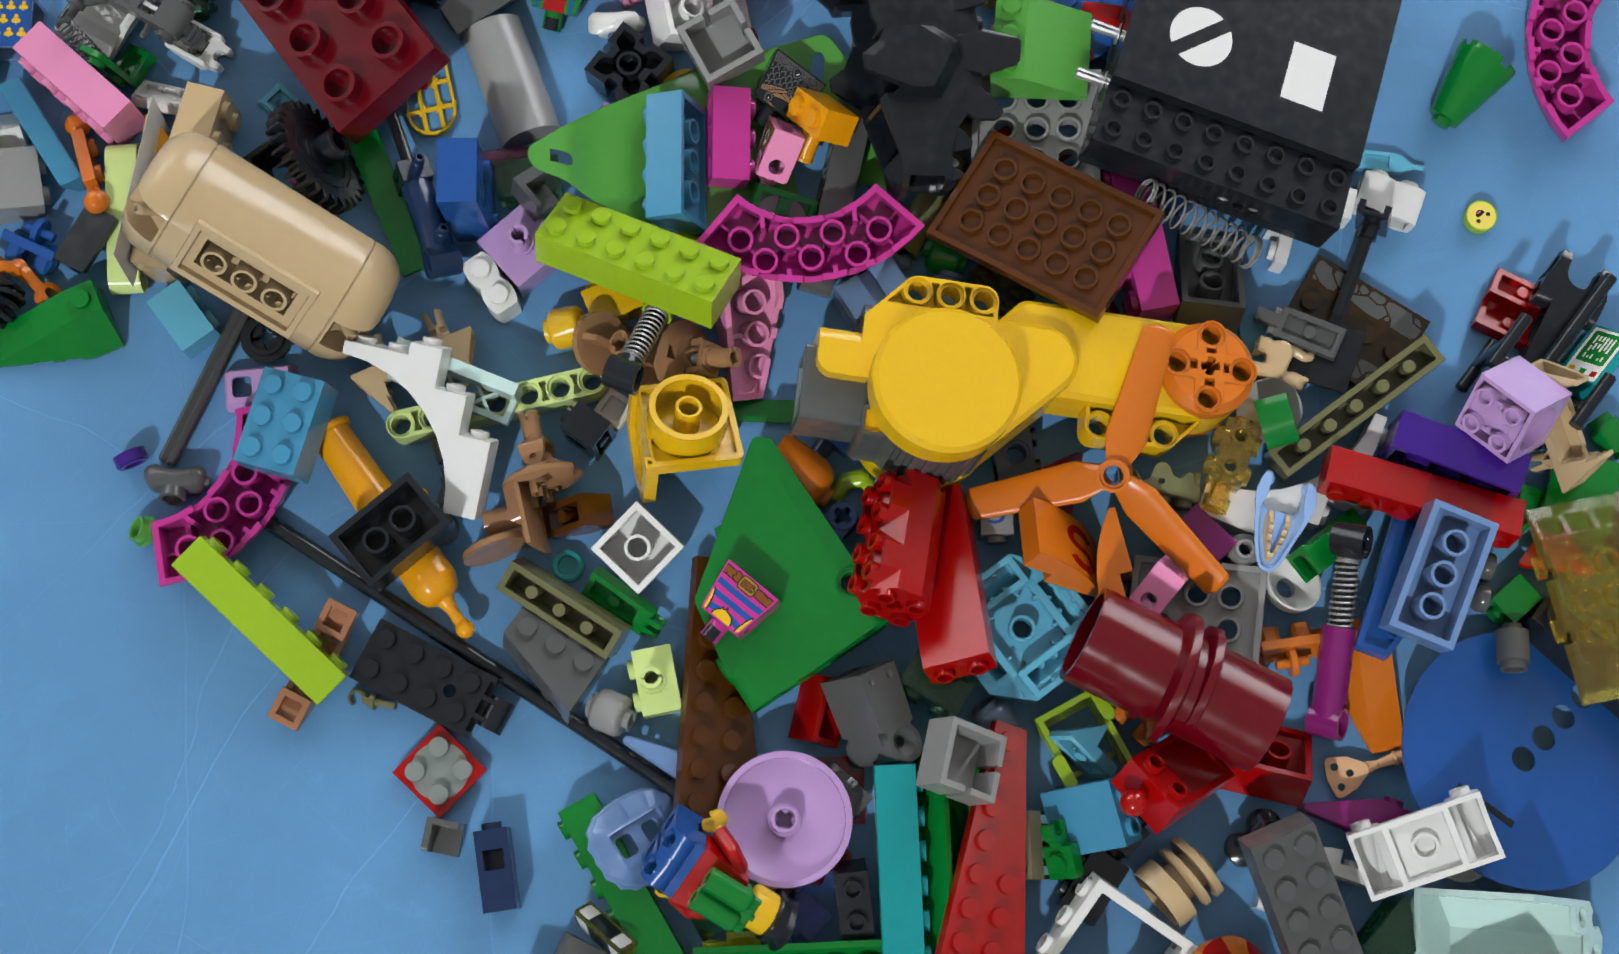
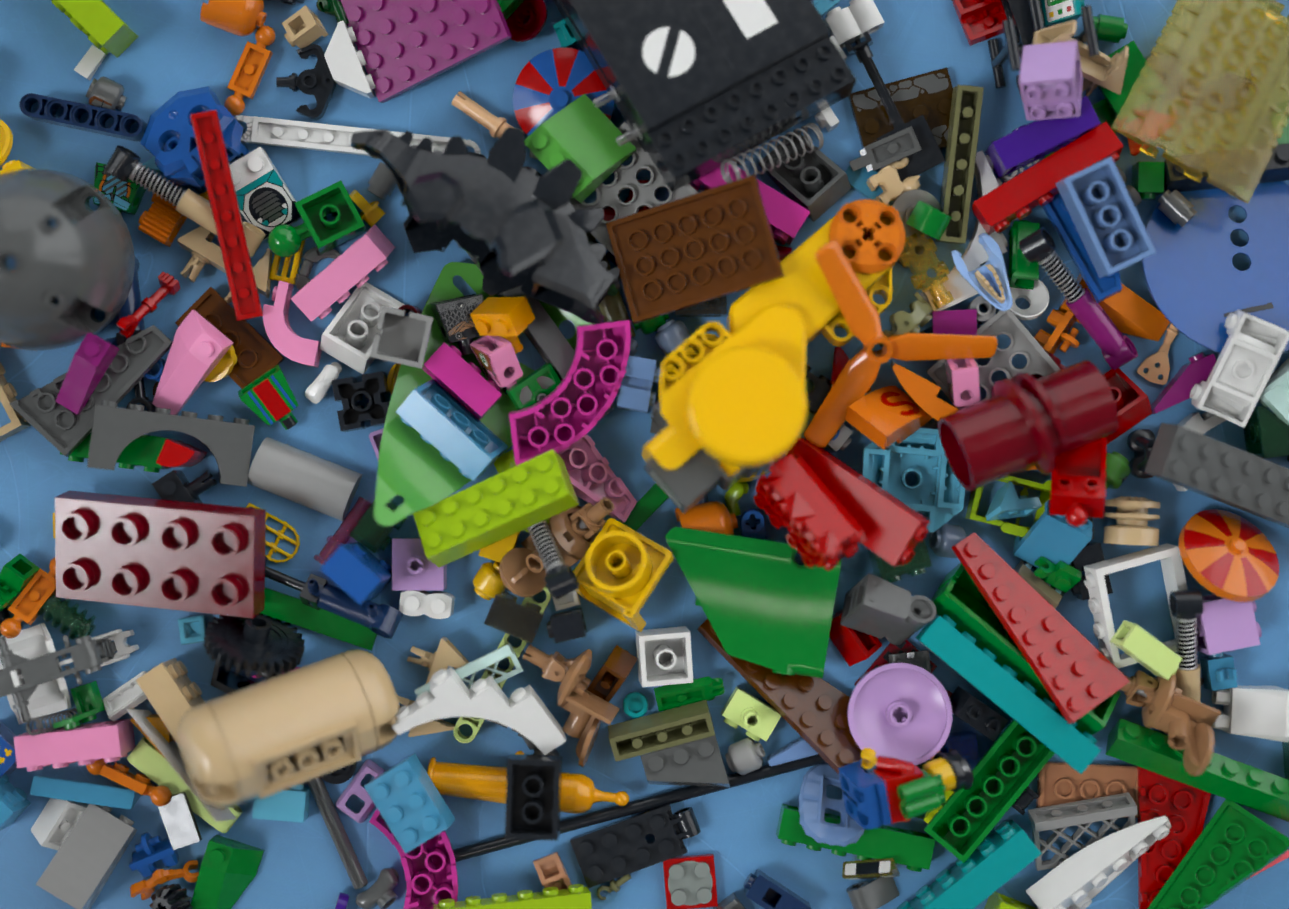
camera: 45 degrees left, 10 degrees up
(532, 193) = (396, 534): dark grey panel -> none
(550, 371) = (515, 618): none -> clear smoke brick
(736, 604) = (754, 634): torso -> none
(953, 753) = (957, 595): light grey piece -> none
(1209, 820) = (1116, 470): none -> bright green head

